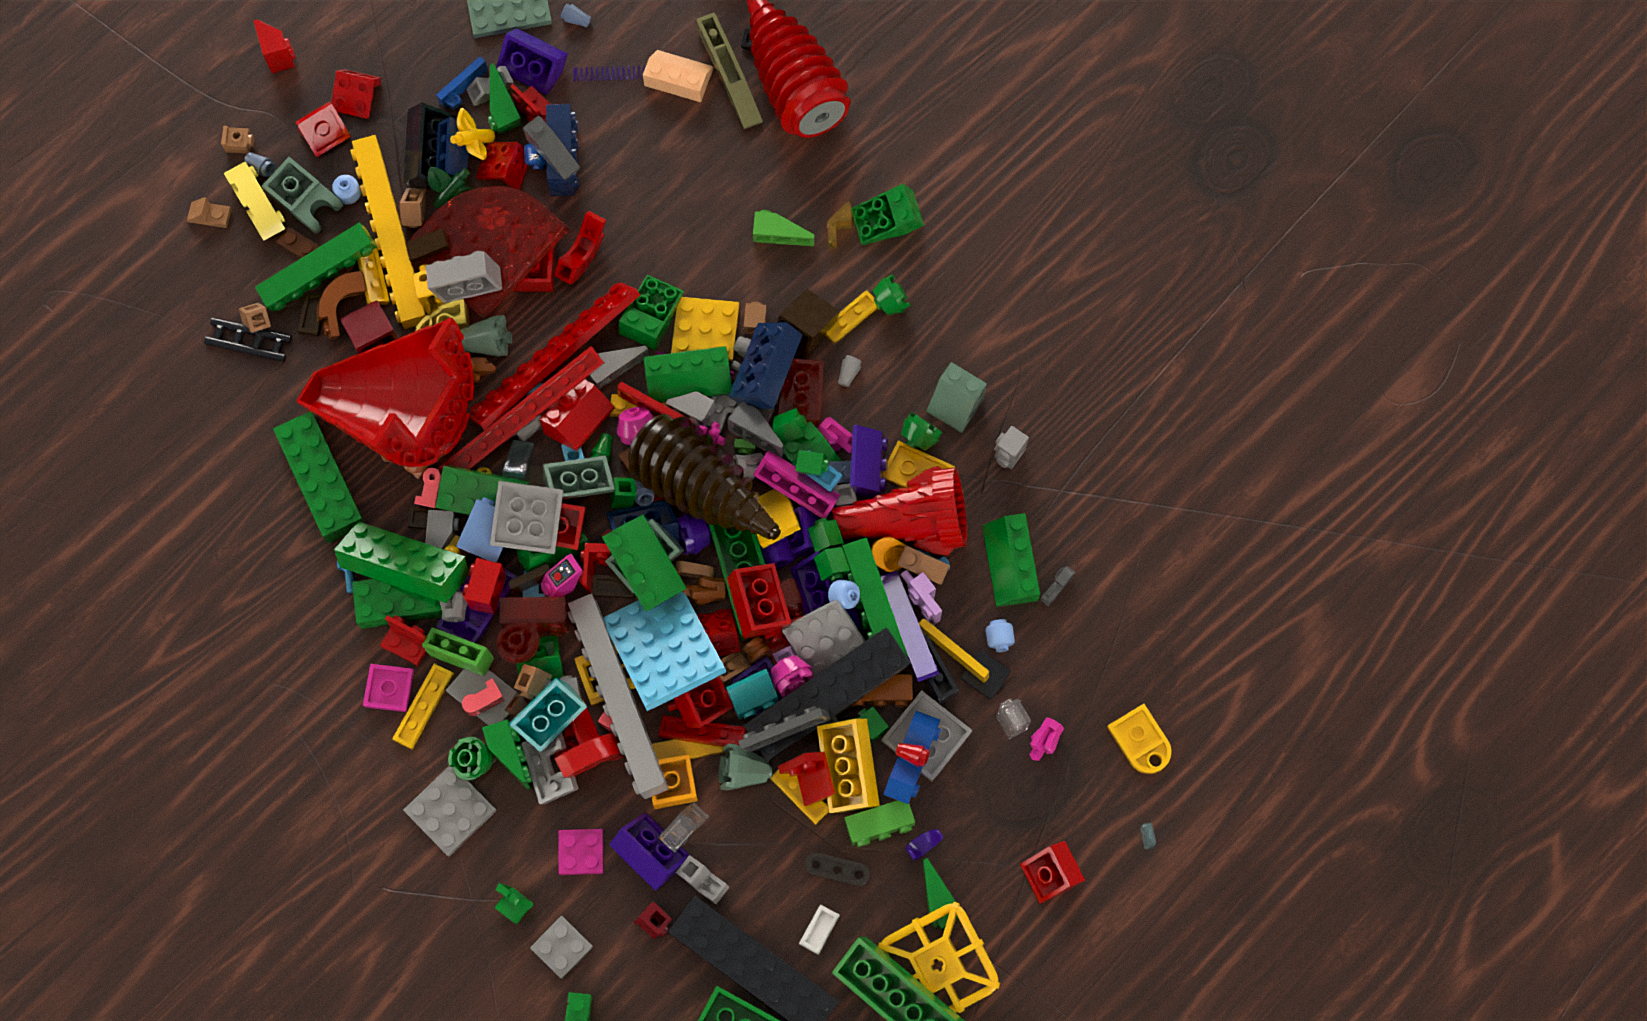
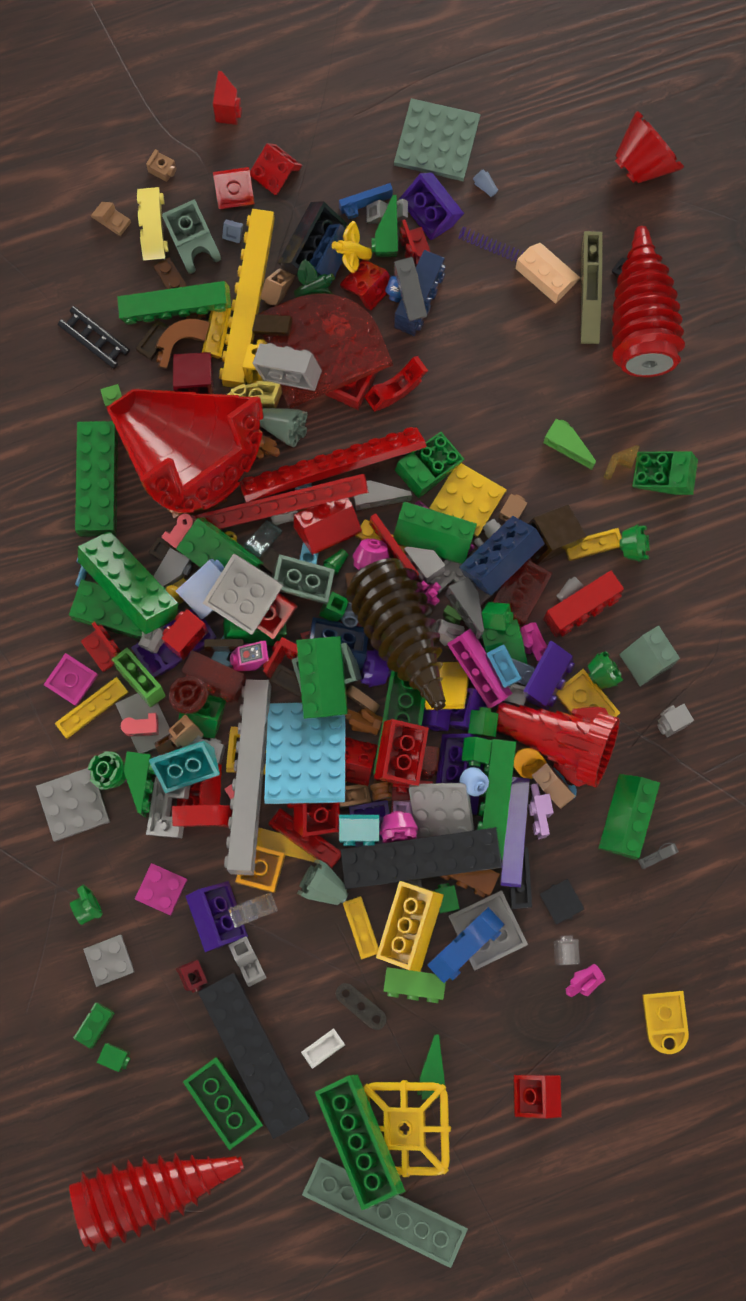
camera: 25 degrees right, 5 degrees up
(255, 317) = (106, 321): medium nougat brick -> none
(262, 165) = (171, 195): sand blue cone -> none
(293, 388) = (111, 394): none -> bright green plate
(340, 168) = (232, 231): none -> sand blue tile
(346, 189) = (229, 247): light blue head -> none
(790, 726) = (362, 870): dark grey plate -> none
(812, 463) = (500, 658): green brick -> none
(812, 776) = (376, 921): red bracket -> none
(868, 377) = (583, 604): none -> red brick
(914, 754) = (467, 944): red cone -> none
(923, 843) = (441, 1018): dark purple helmet -> none
(954, 650) = (544, 869): yellow tile -> none
(1000, 635) = (589, 875): light blue head -> none
(1148, 835) = (632, 1105): clear light blue tile -> none

